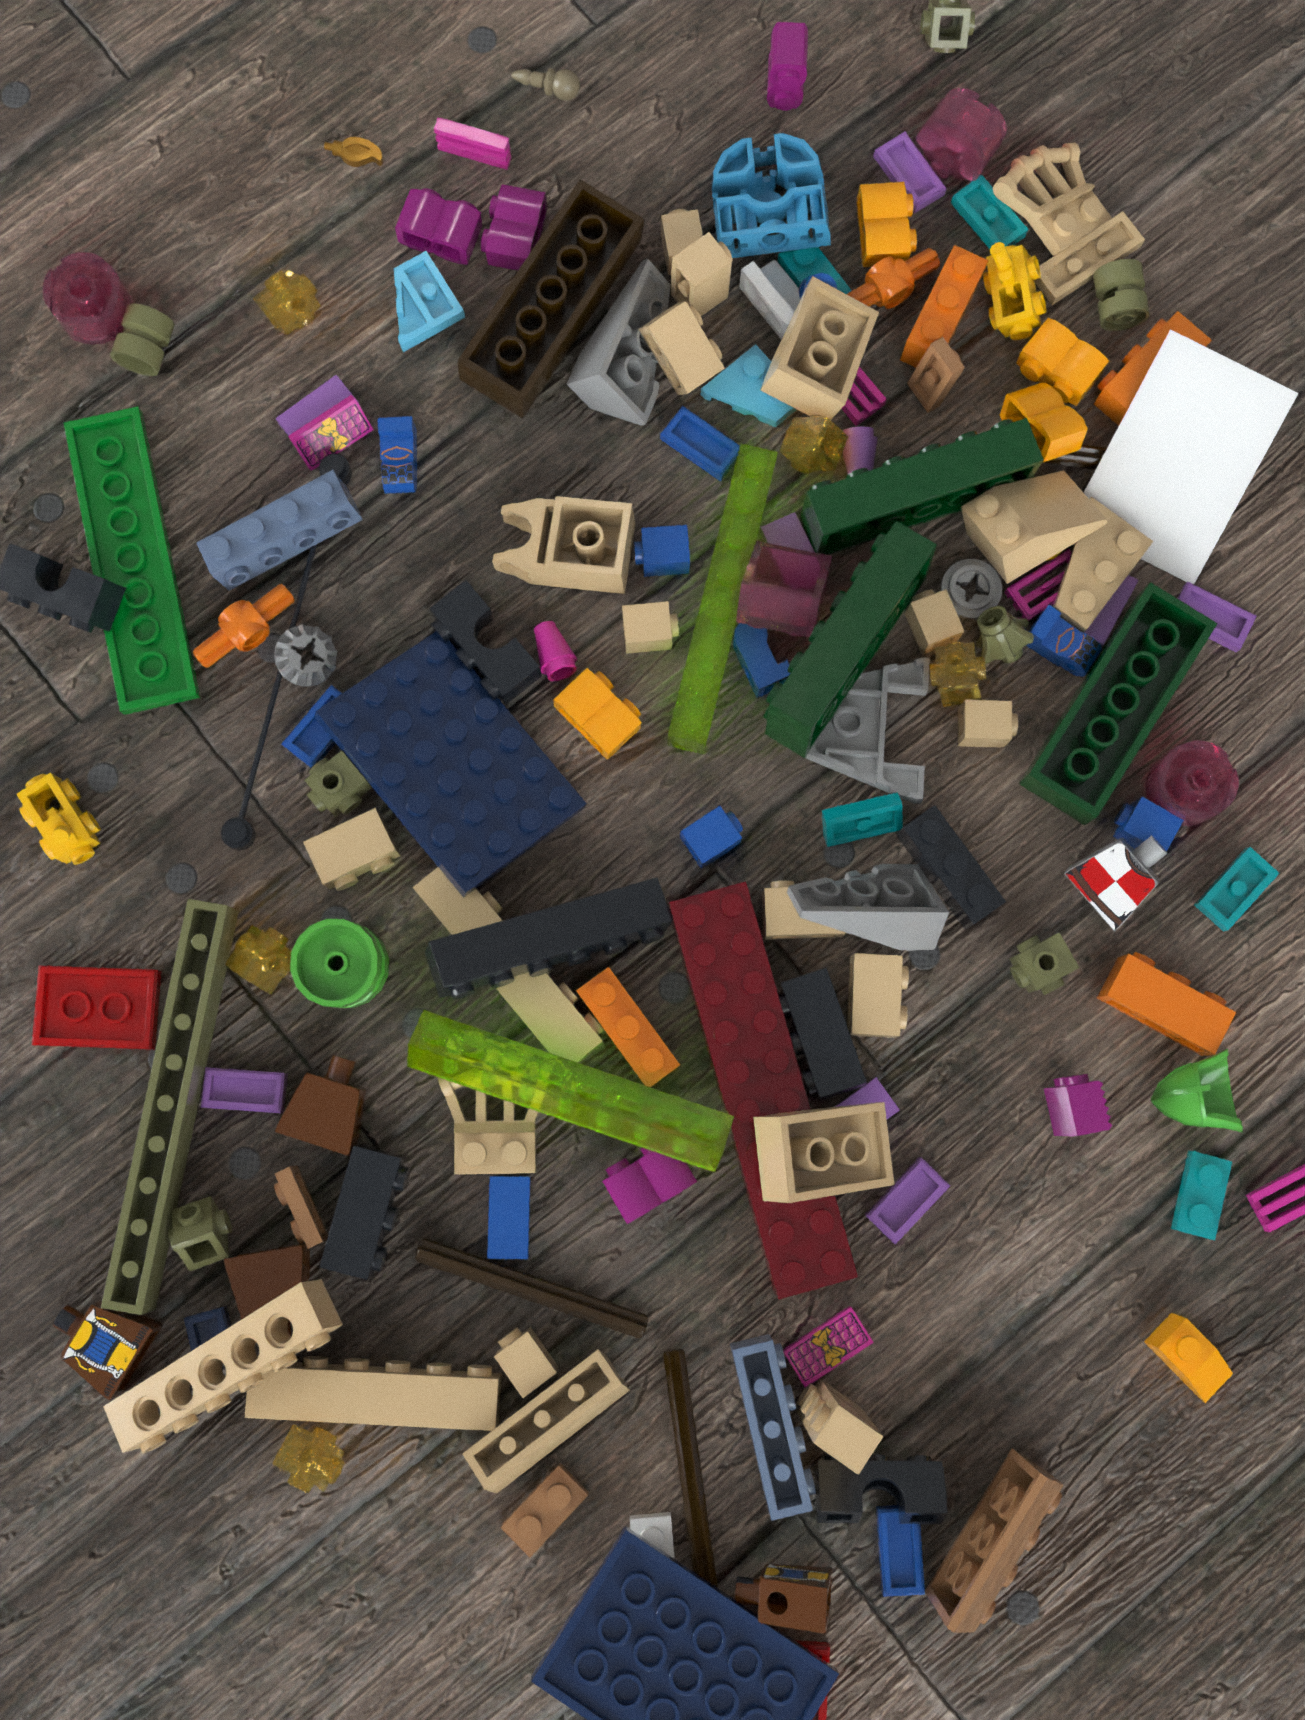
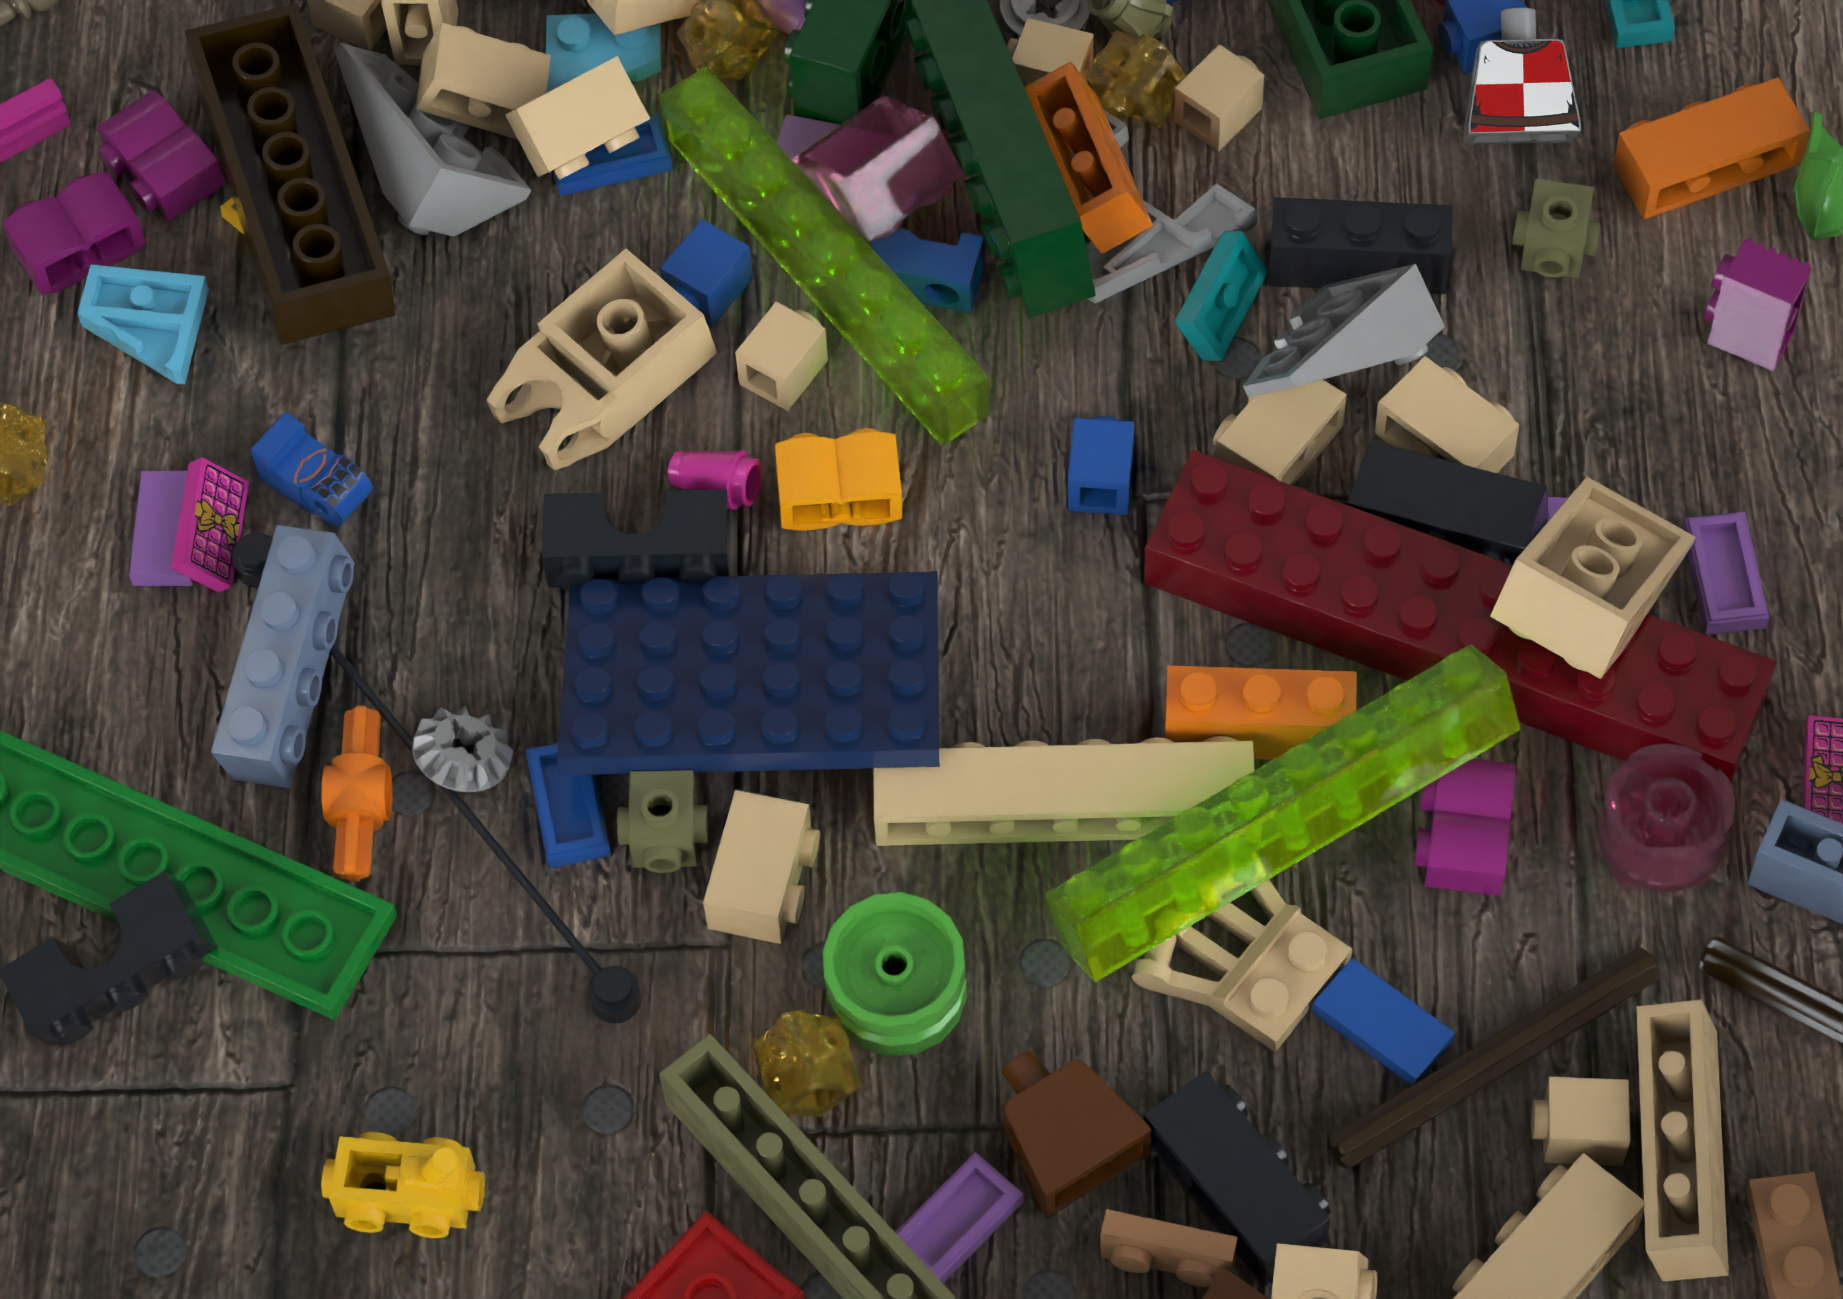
camera: 45 degrees left, 20 degrees down
(547, 938) = (1074, 704): black brick -> none
(694, 415) = (577, 118): none -> tan brick
(749, 1282) = (1665, 819): none -> clear pink brick
(876, 690) = (1088, 158): none -> orange brick

